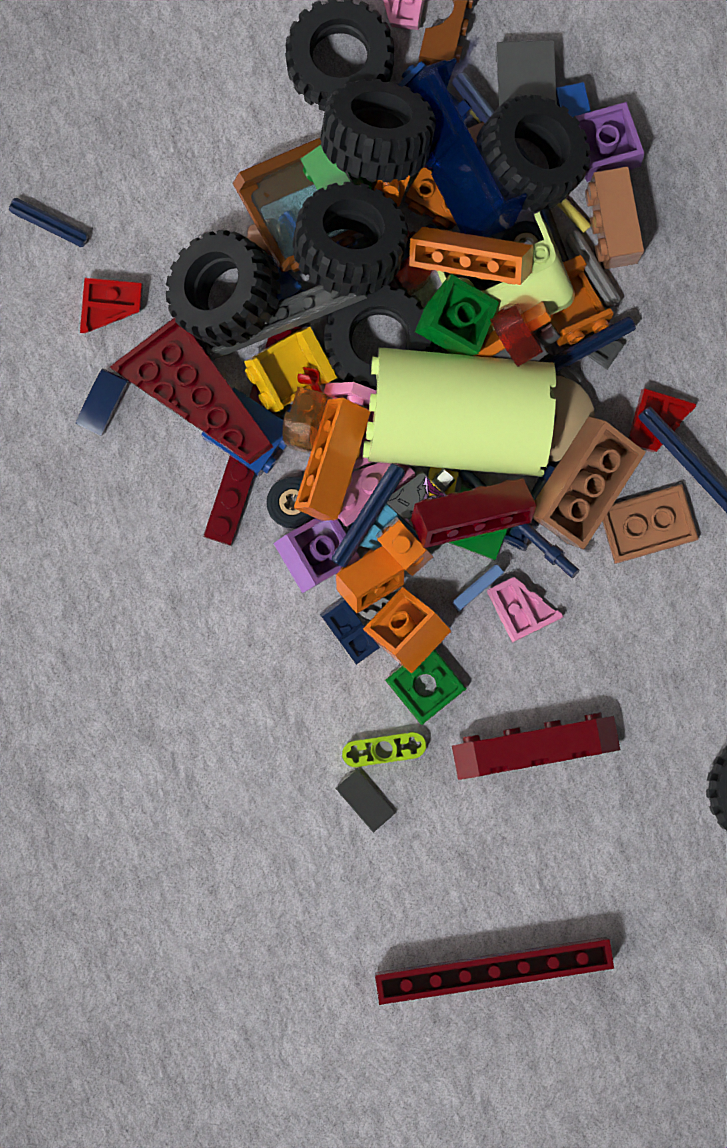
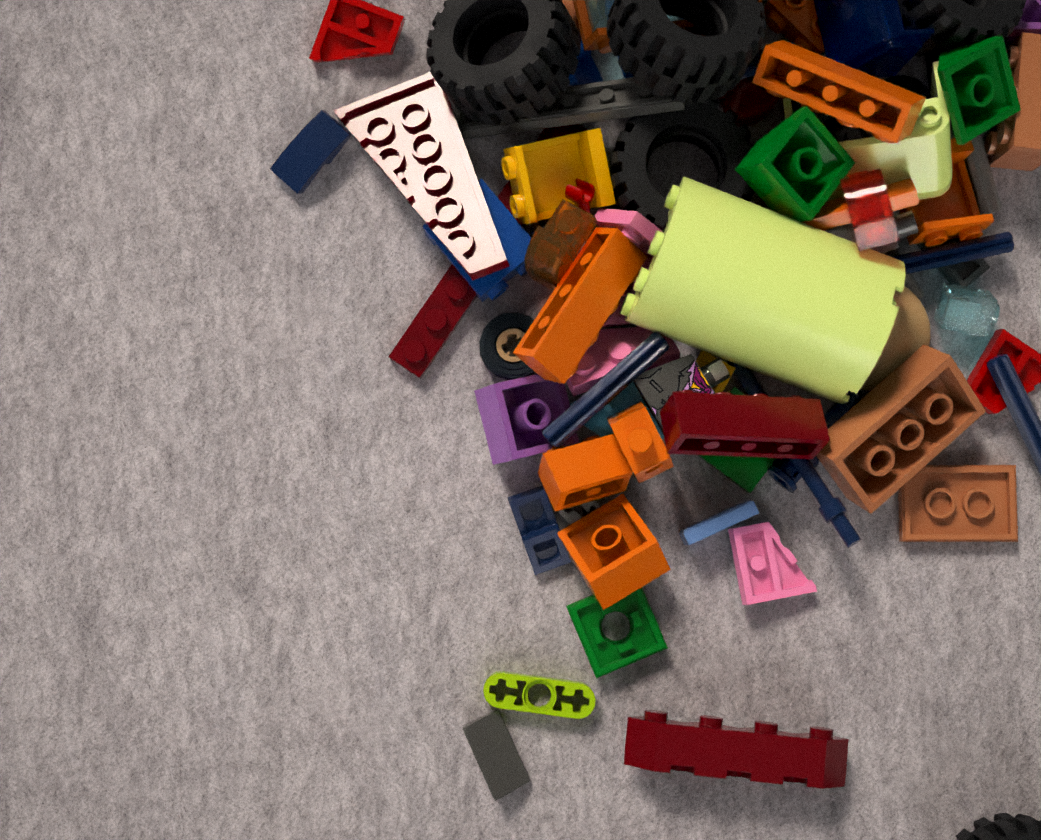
camera: 15 degrees right, 0 degrees up
(569, 225) = (977, 87): none -> green slope
(614, 381) = (966, 310): none -> clear light blue brick

